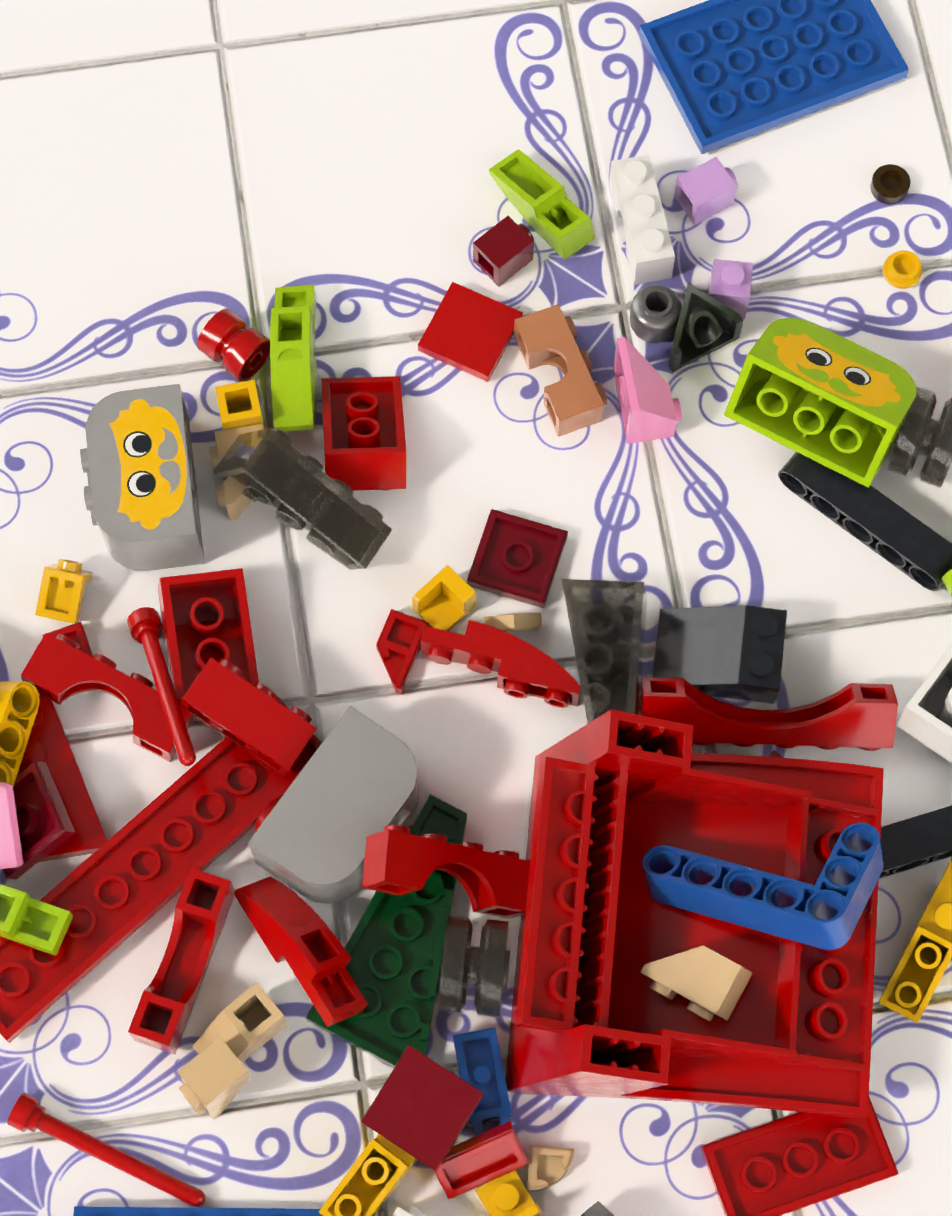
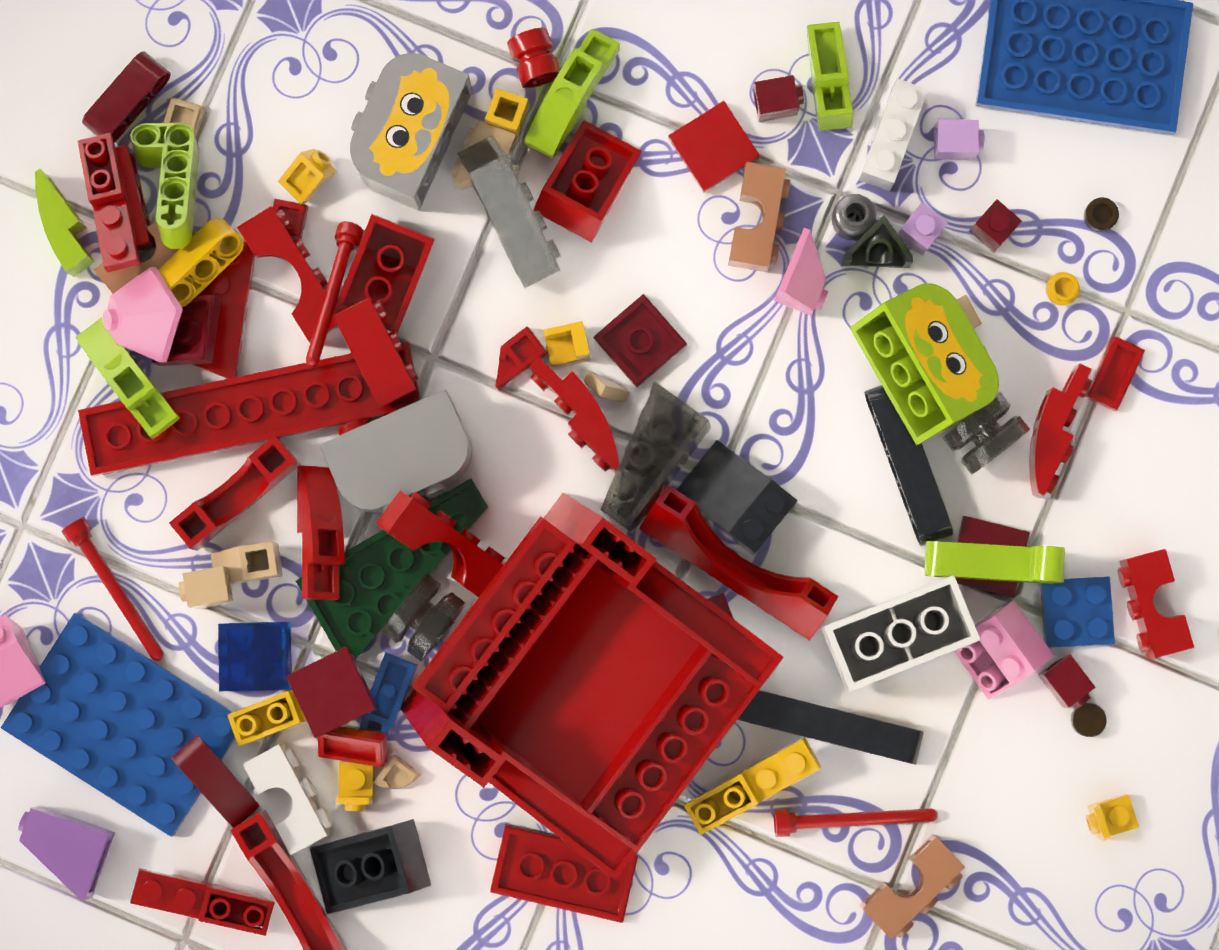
camera: 35 degrees right, 15 degrees up
(309, 1130) = (254, 656): none -> clear blue slope
(701, 976) = (564, 727): tan slope -> none
(770, 903) = (642, 701): blue beam -> none
(798, 246) = (995, 225): none -> dark red brick

